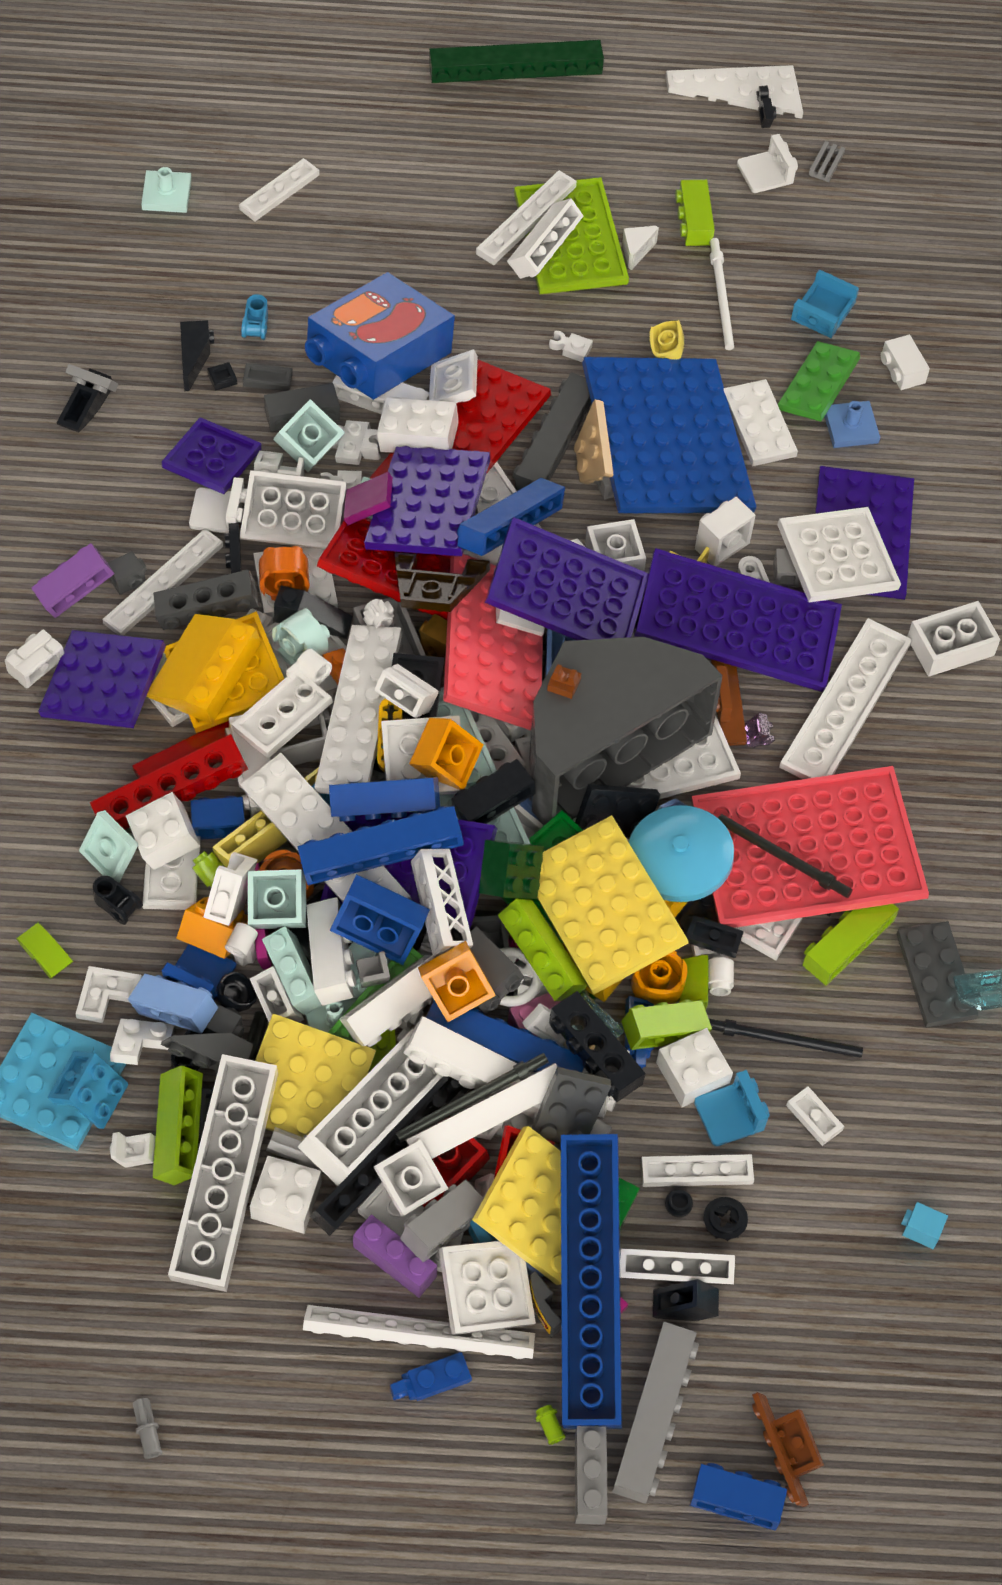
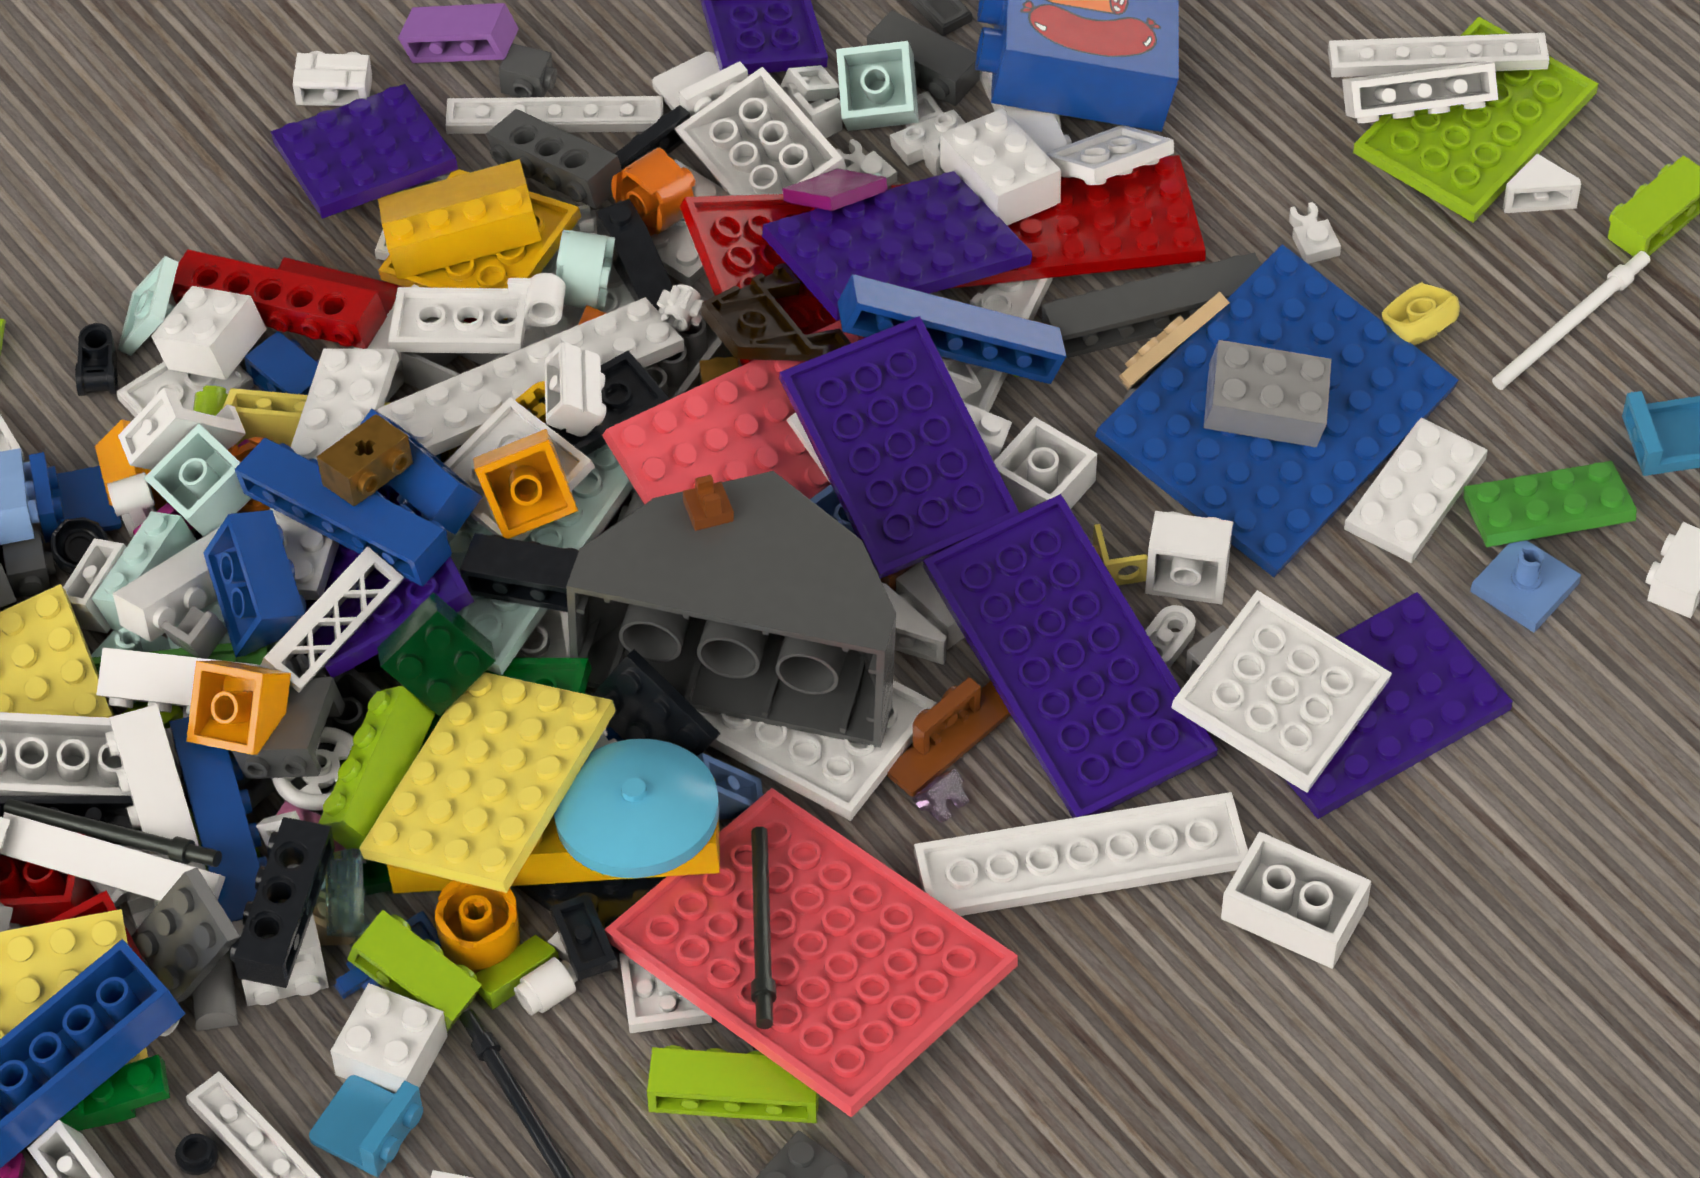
camera: 55 degrees right, 5 degrees down
(375, 808) = (365, 460): none -> pearl gold brick
(671, 428) = (1267, 393): none -> light grey brick

